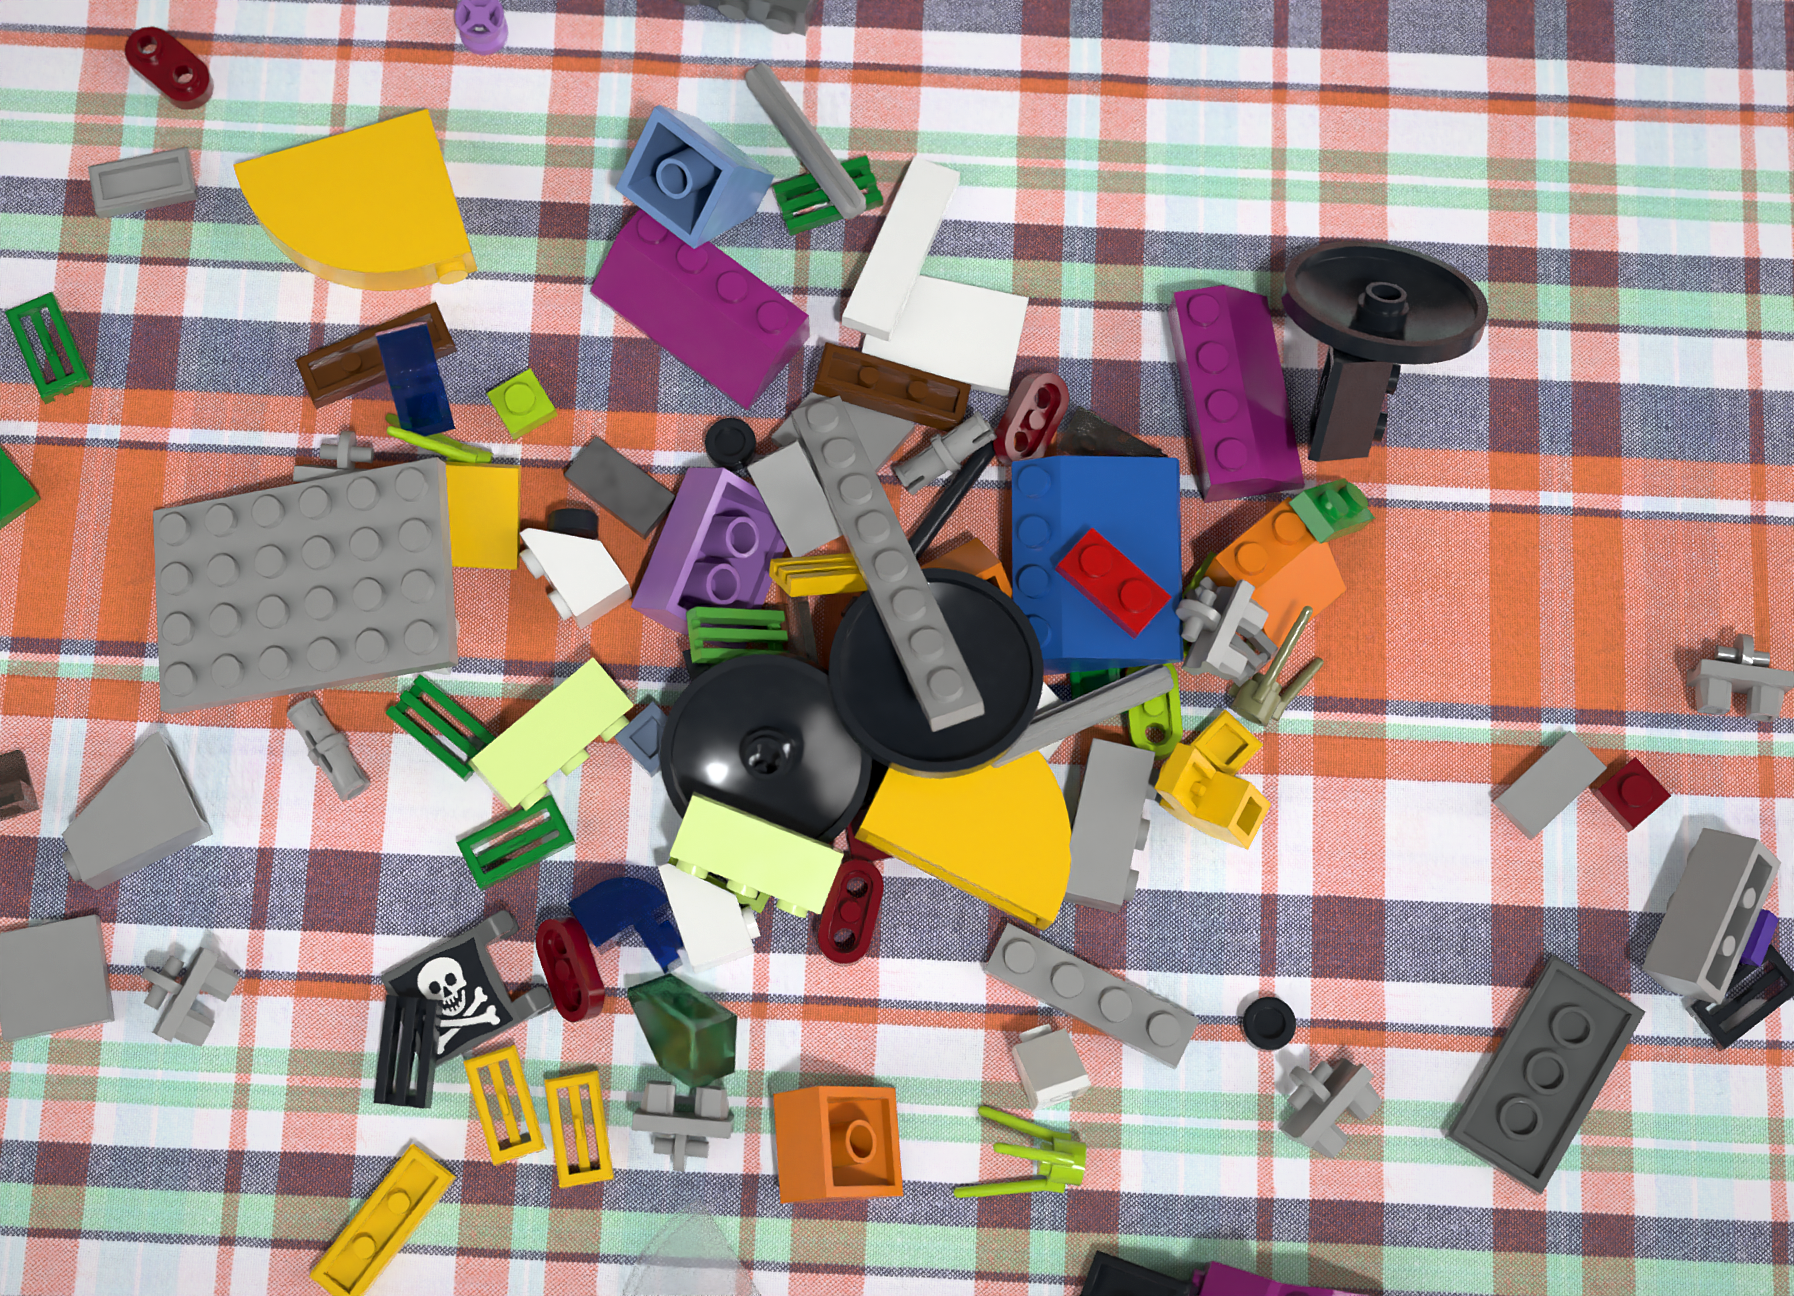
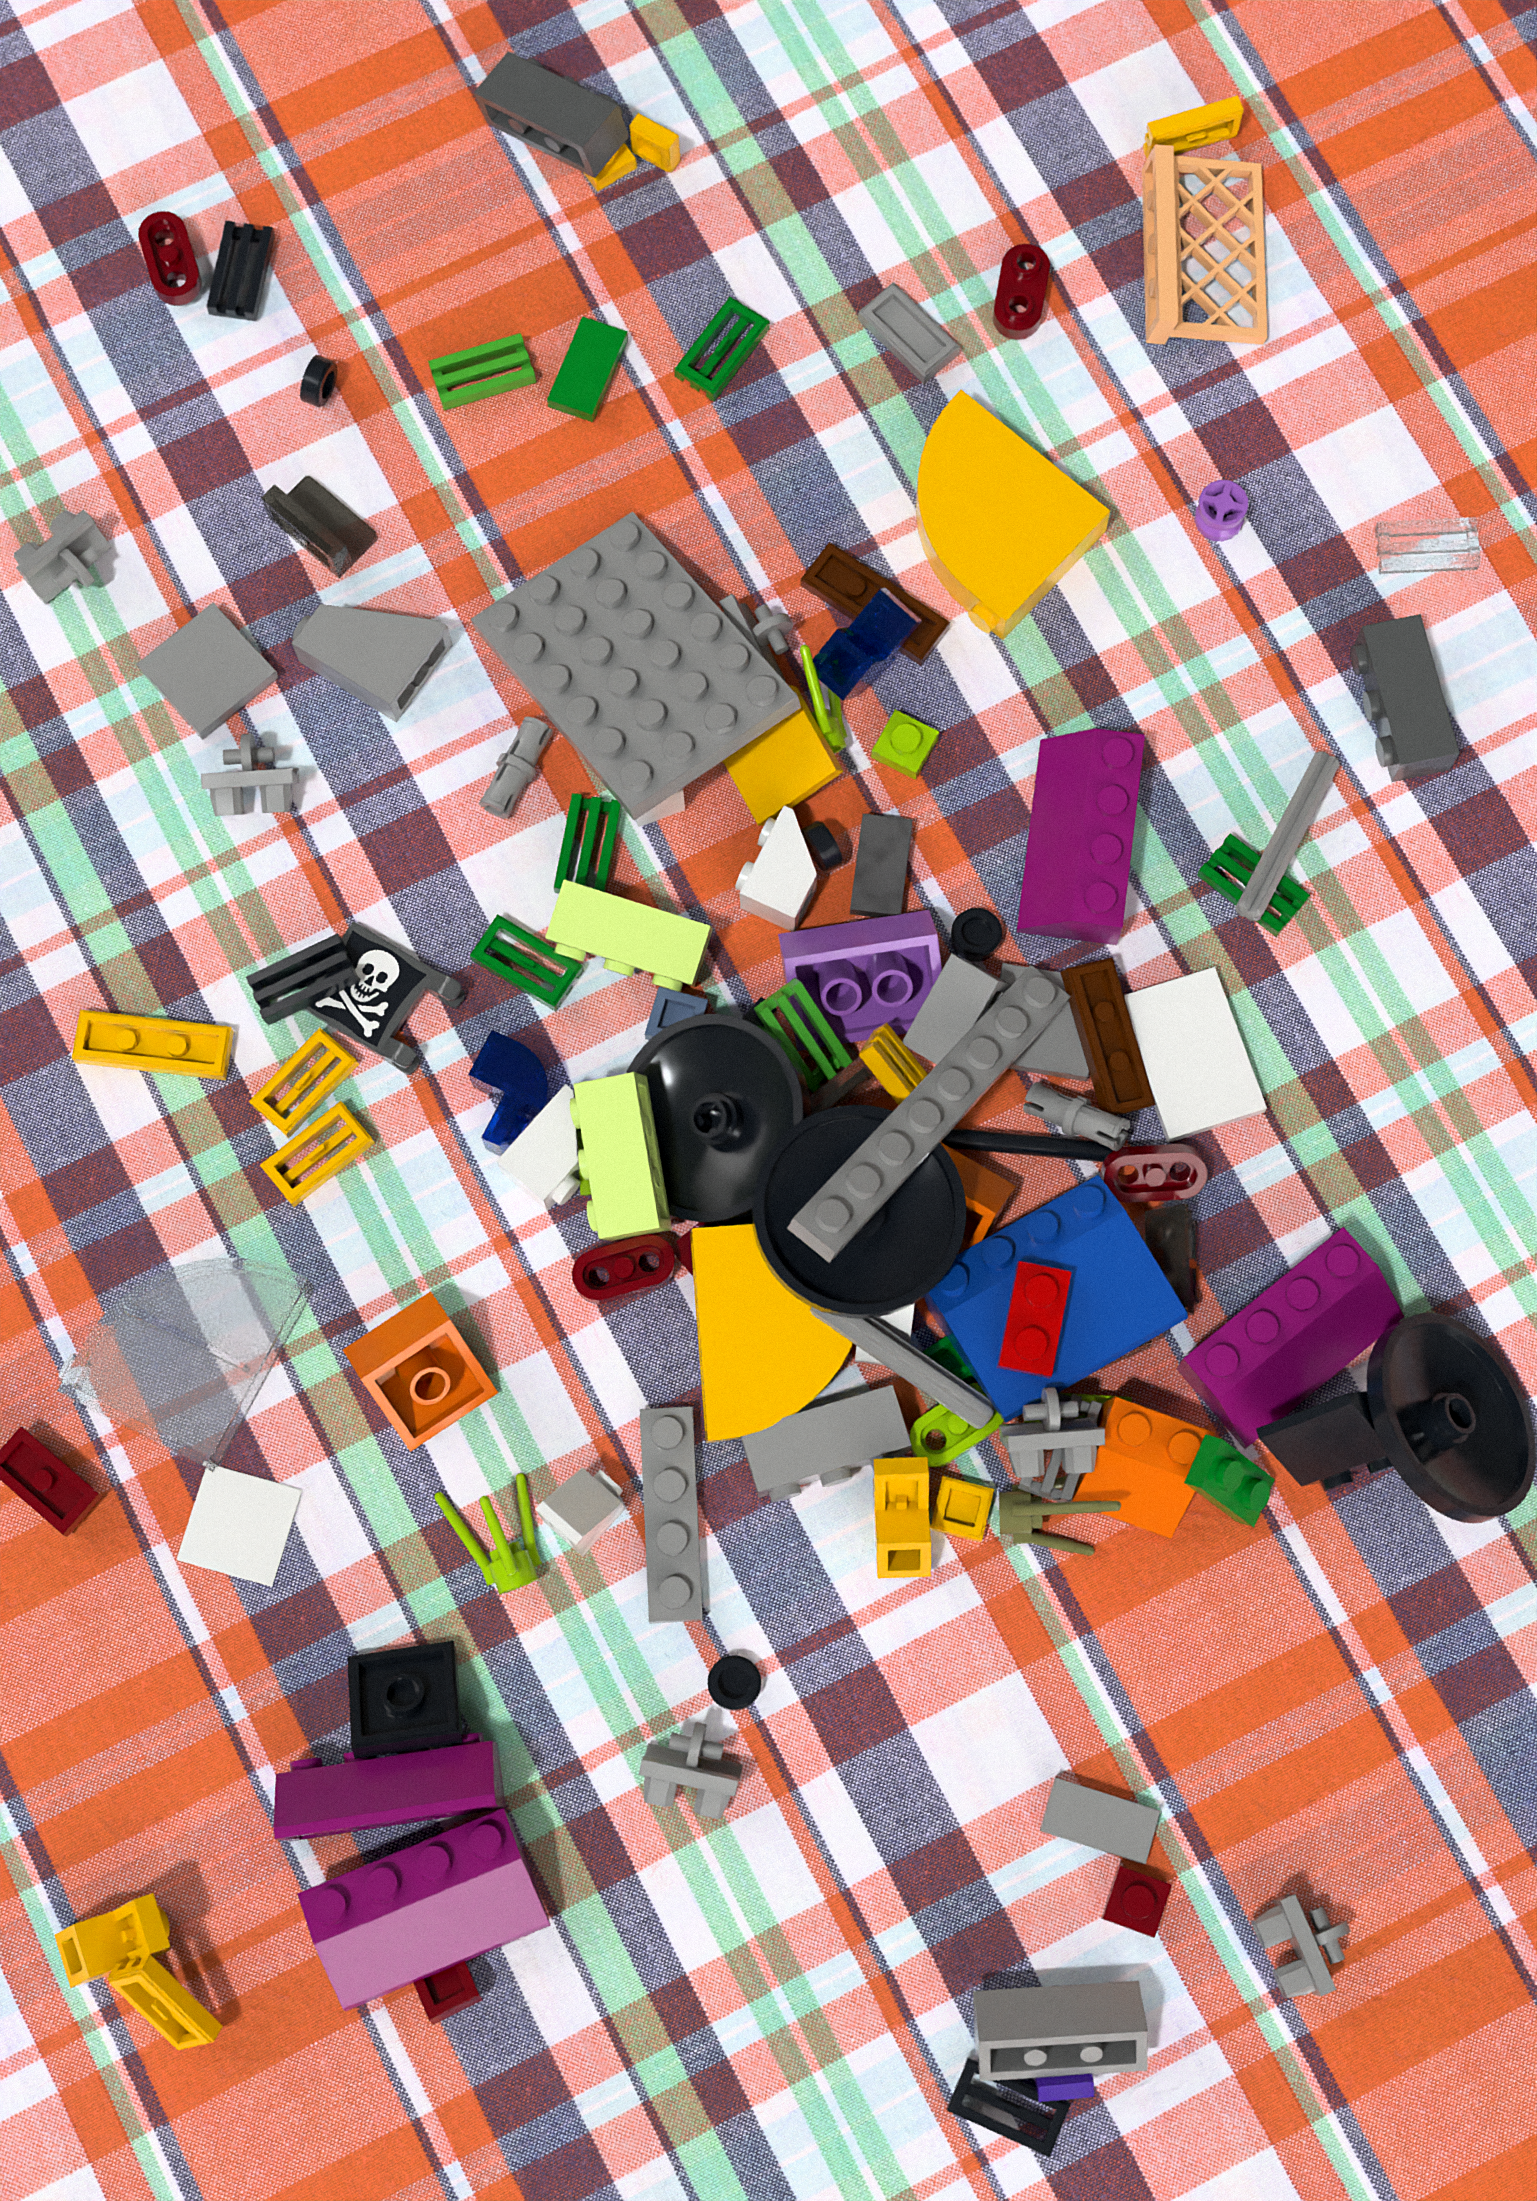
camera: 65 degrees right, 0 degrees up
(570, 969) = (442, 1067): dark red plate -> none
(685, 1030) = (443, 1188): clear green slope -> none
(692, 177) = (1185, 758): medium blue slope -> none
(708, 1120) = (378, 1250): light grey hips -> none
(901, 249) = (1240, 973): white tile -> none
(1545, 1075) = (831, 1957): dark grey tile -> none

